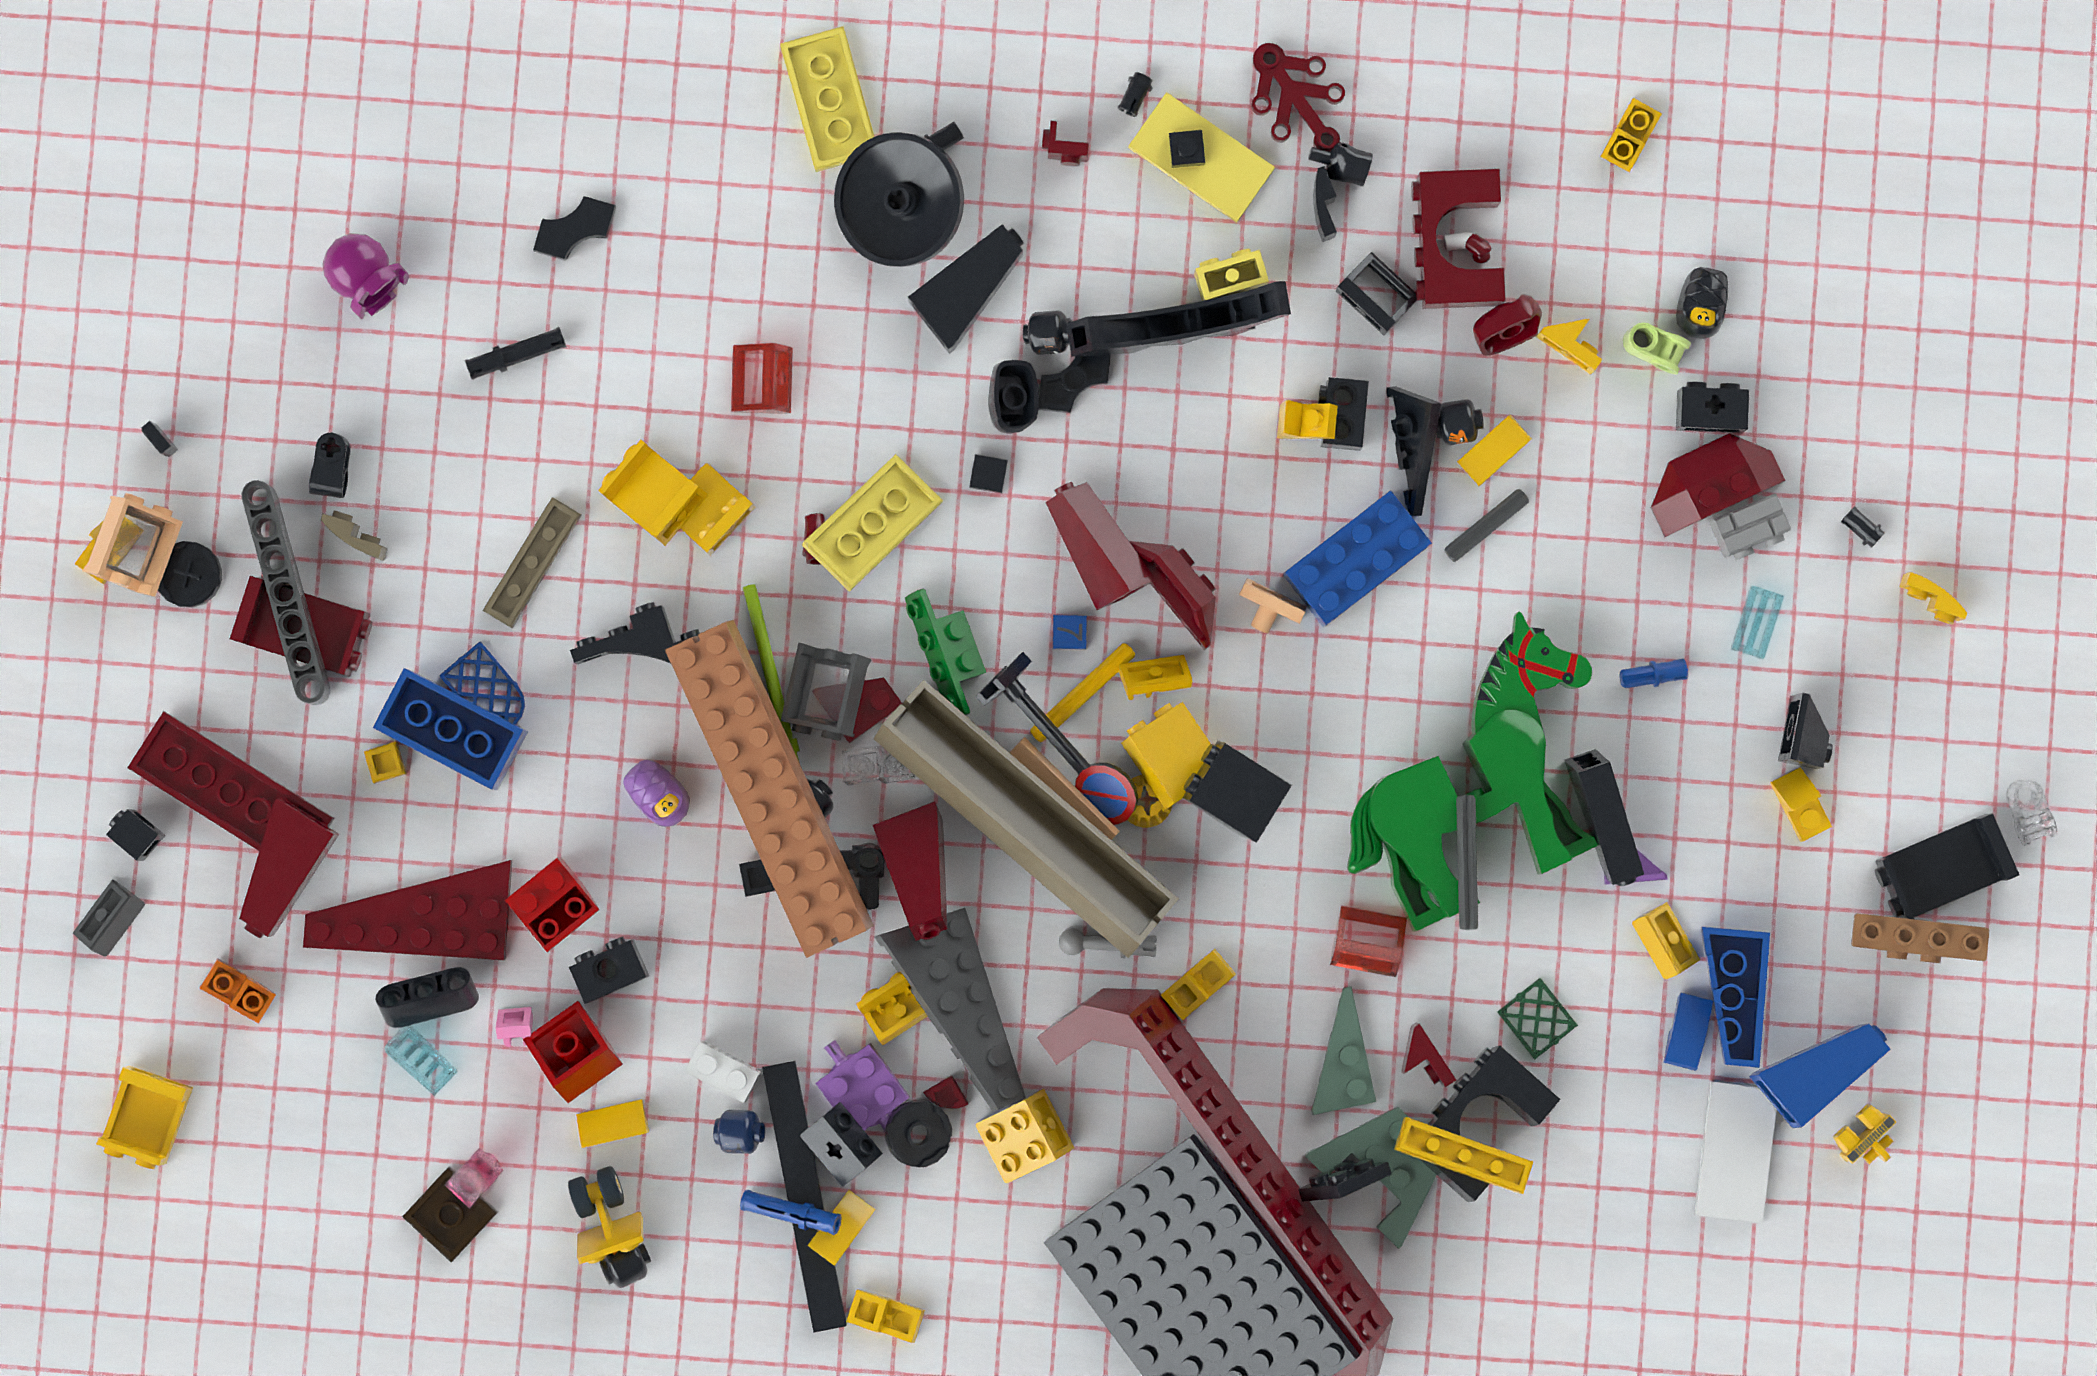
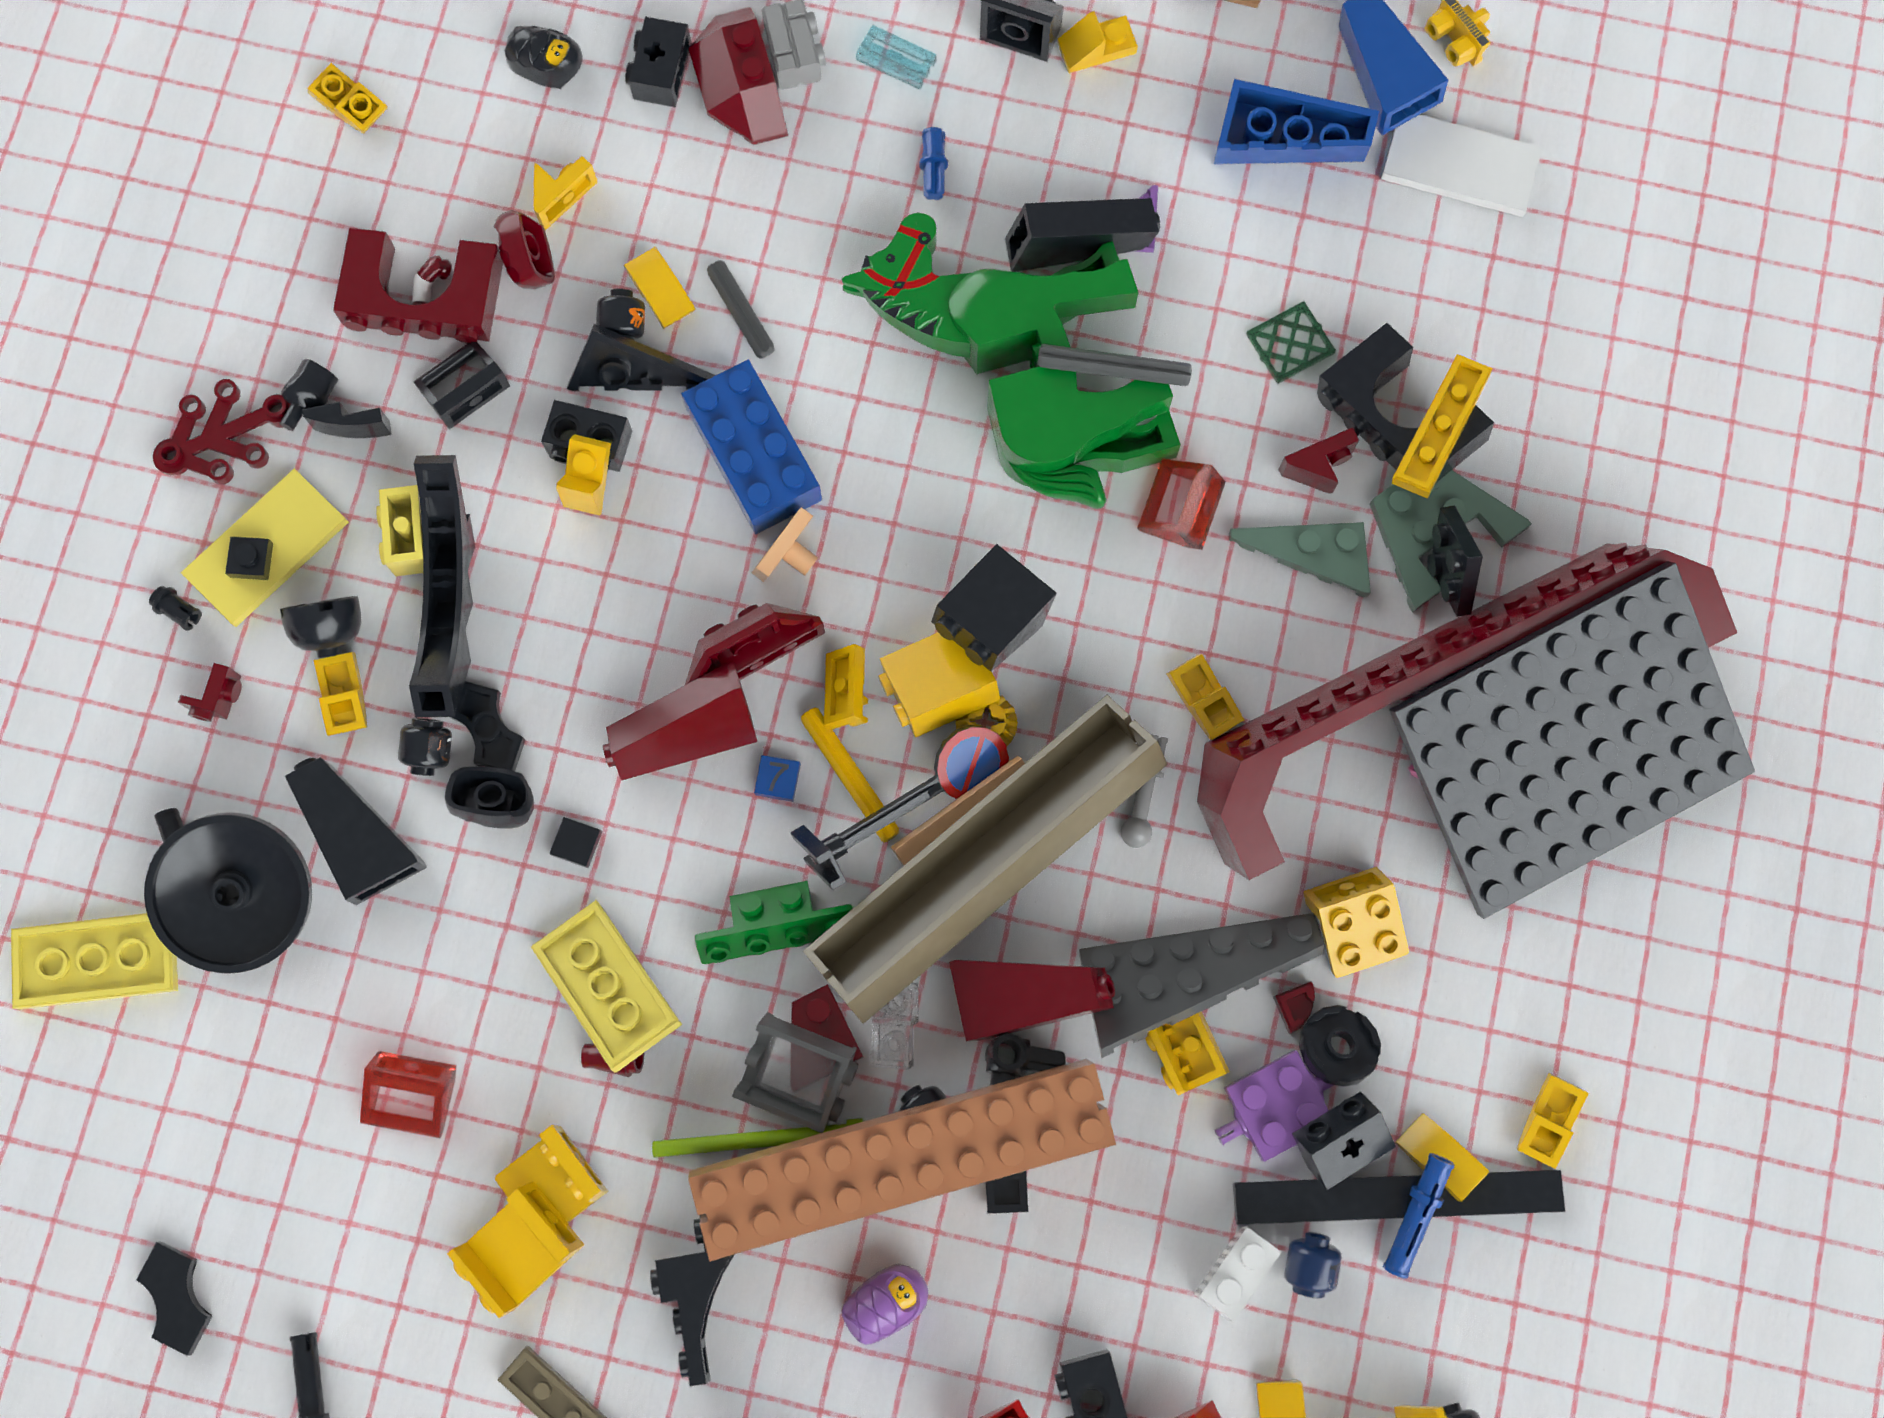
camera: 80 degrees left, 10 degrees down
(1083, 251) = (341, 693): none -> yellow slope
(1138, 225) = (323, 625): none -> black cylinder
(1658, 347) = (584, 102): yellowish green piece -> none
(1665, 941) = (1224, 199): yellow slope -> none
(1688, 1031) = (1331, 189): blue slope -> none

